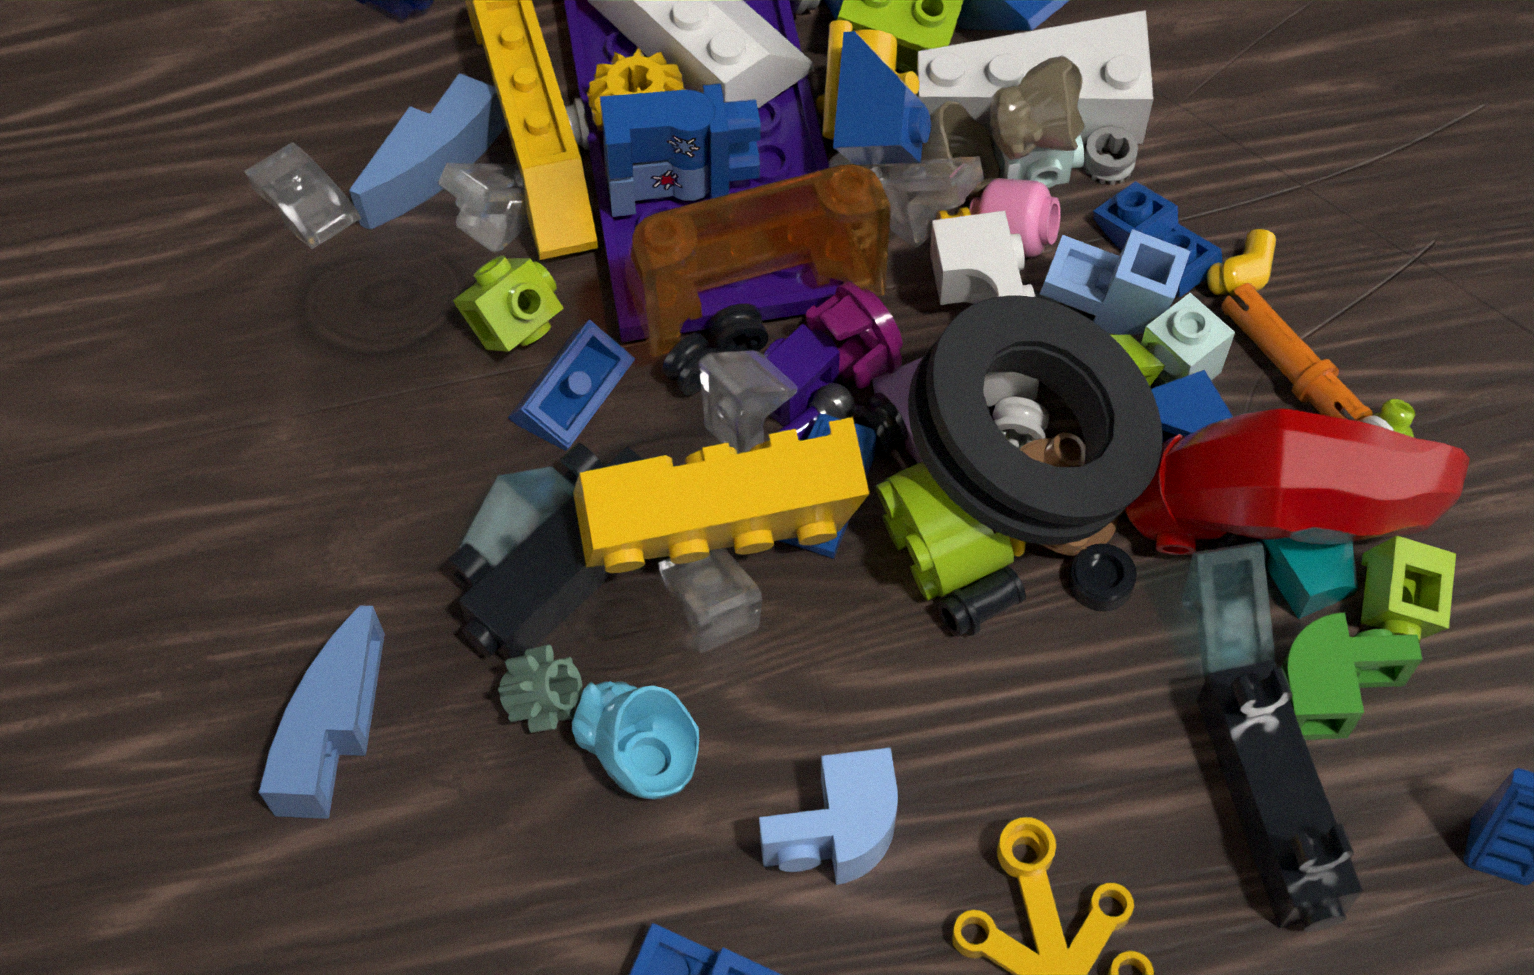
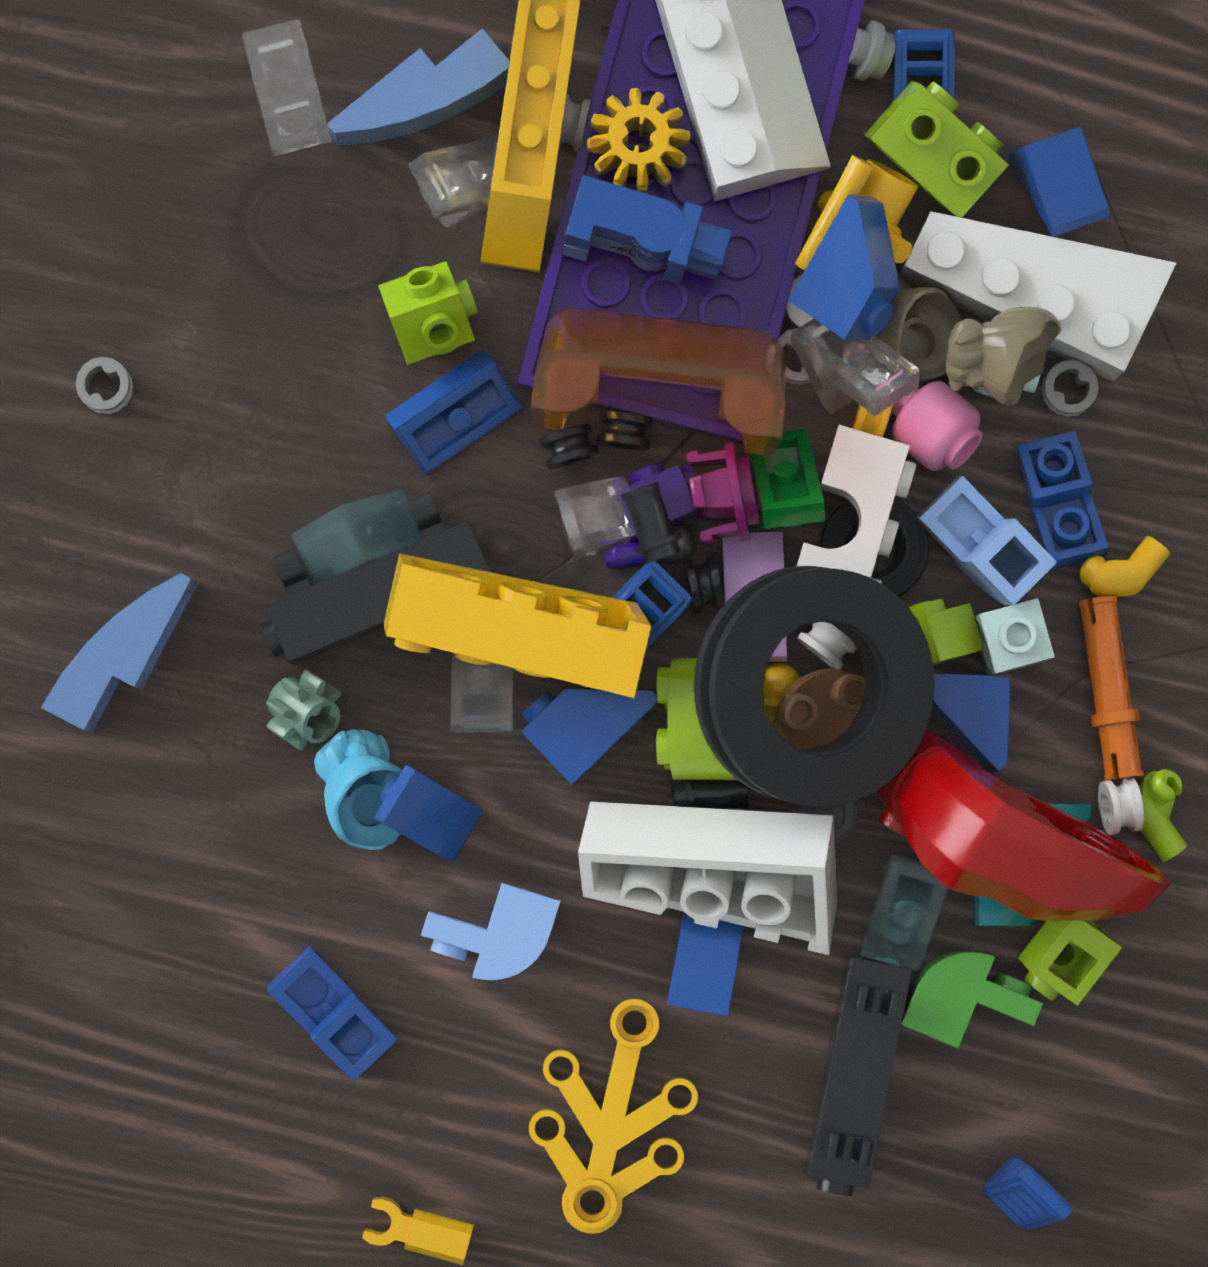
camera: 20 degrees right, 25 degrees up
(216, 510) = (96, 401): none -> light grey bush
(713, 721) = (427, 813): none -> blue slope
(804, 370) = (651, 523): none -> black pin
(828, 588) = (582, 726): none -> blue slope
(919, 312) = (788, 484): none -> green slope
(1033, 647) = (716, 866): none -> white wedge
(1062, 747) = (705, 966): none -> blue slope

